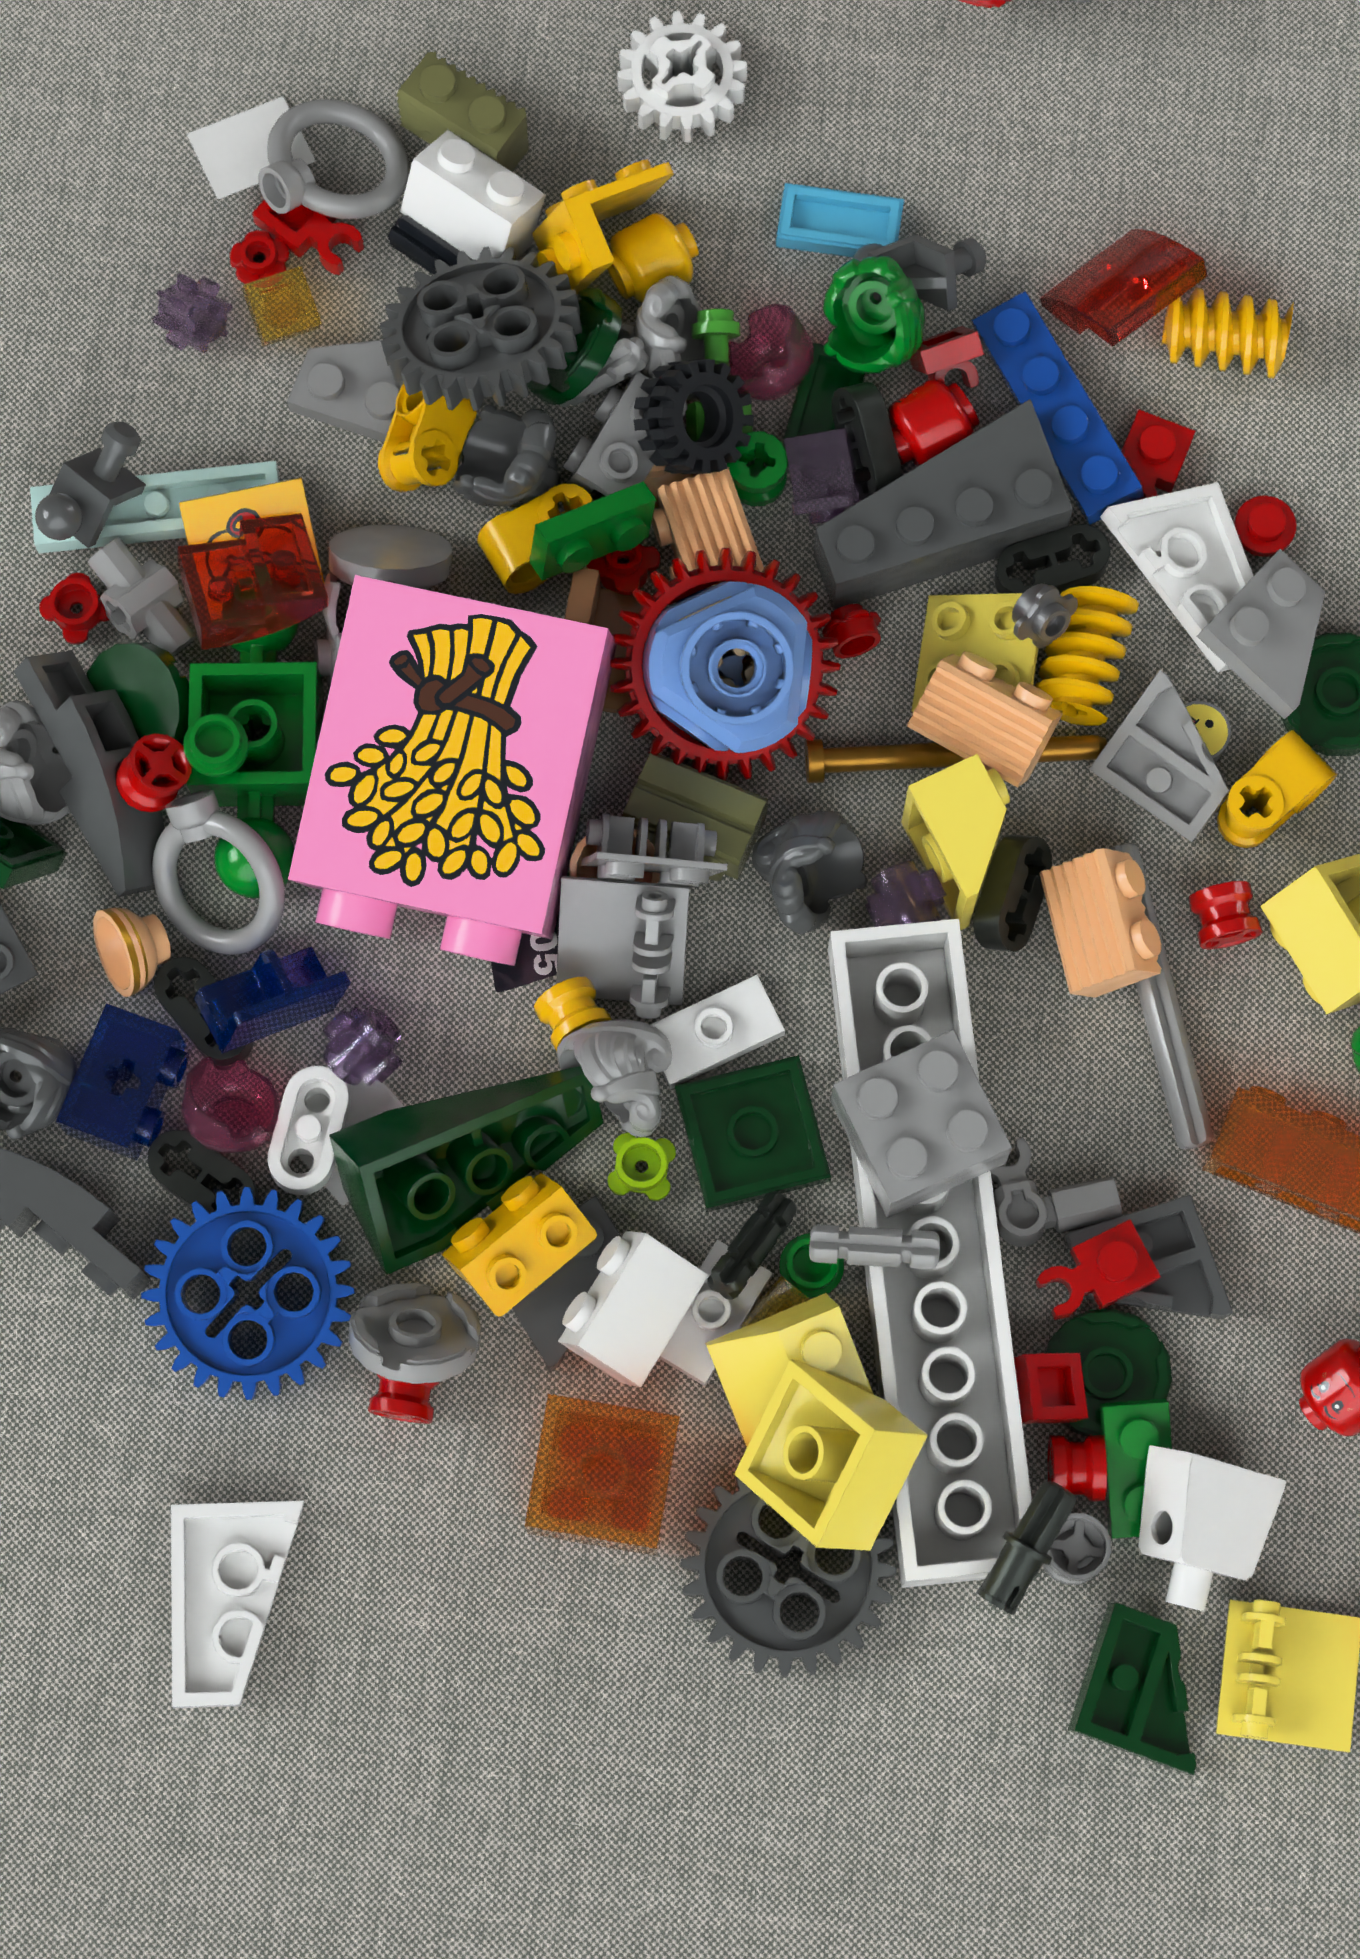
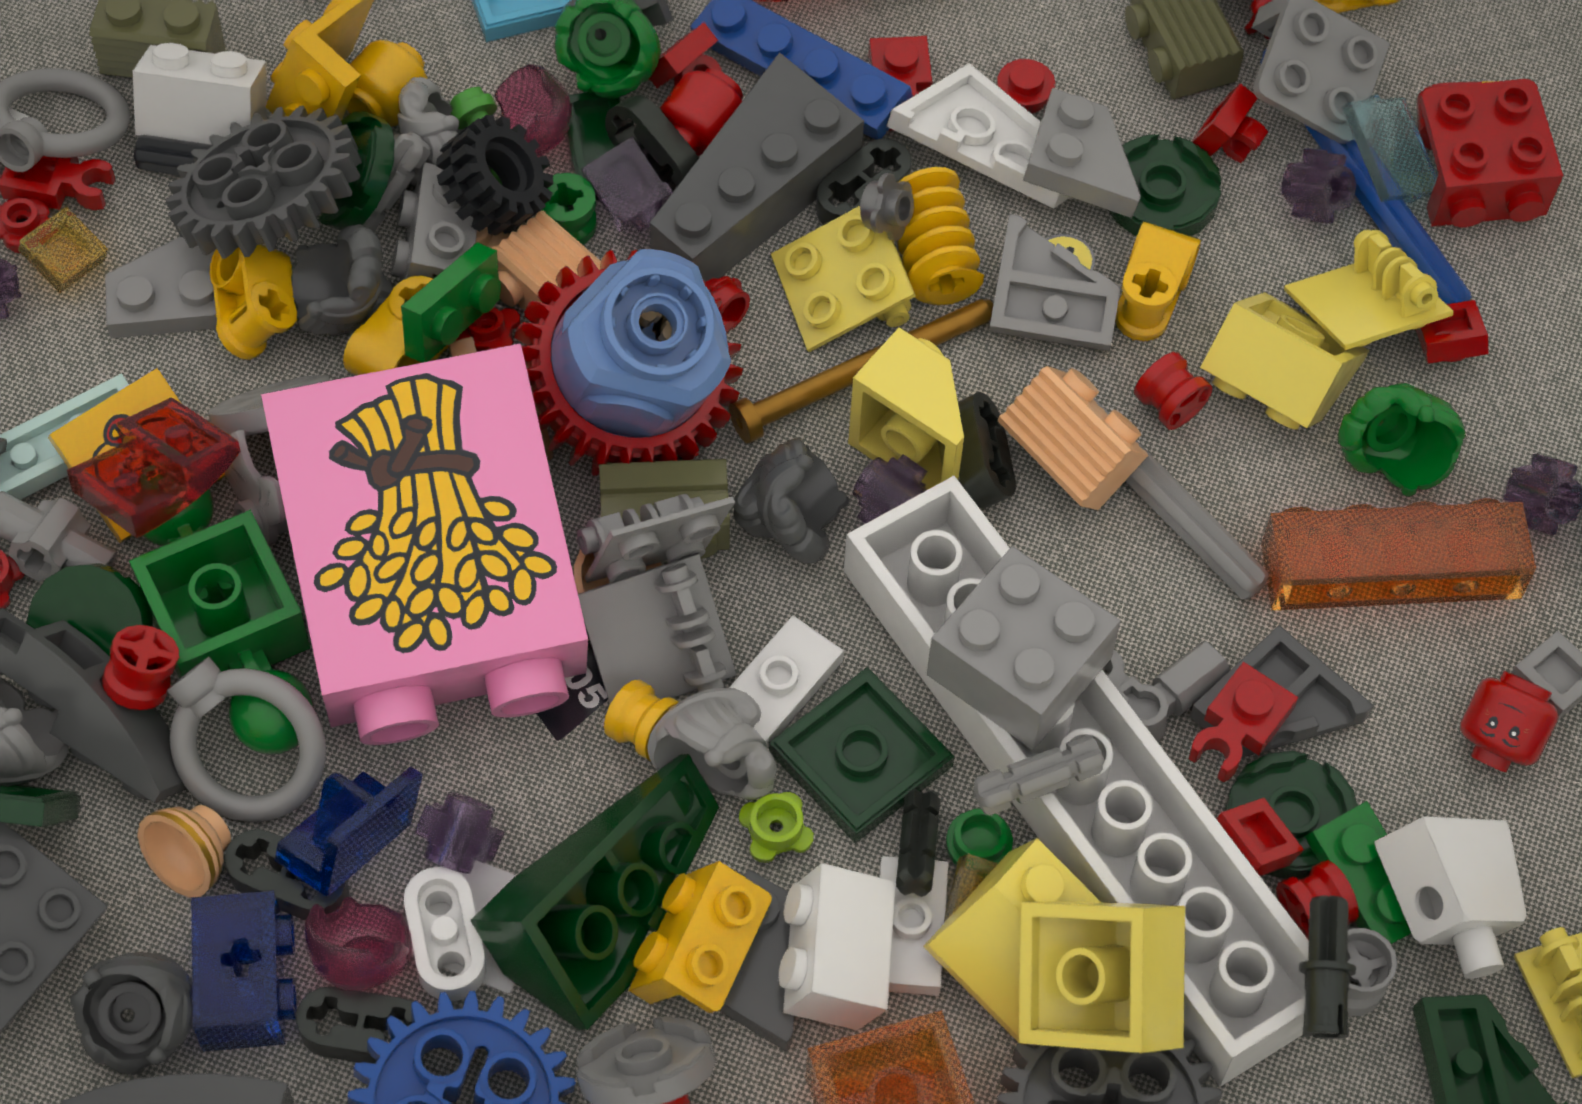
camera: 30 degrees left, 15 degrees down
(216, 745) = (191, 613): green plate -> none
(984, 715) = (867, 307): light nougat brick -> none

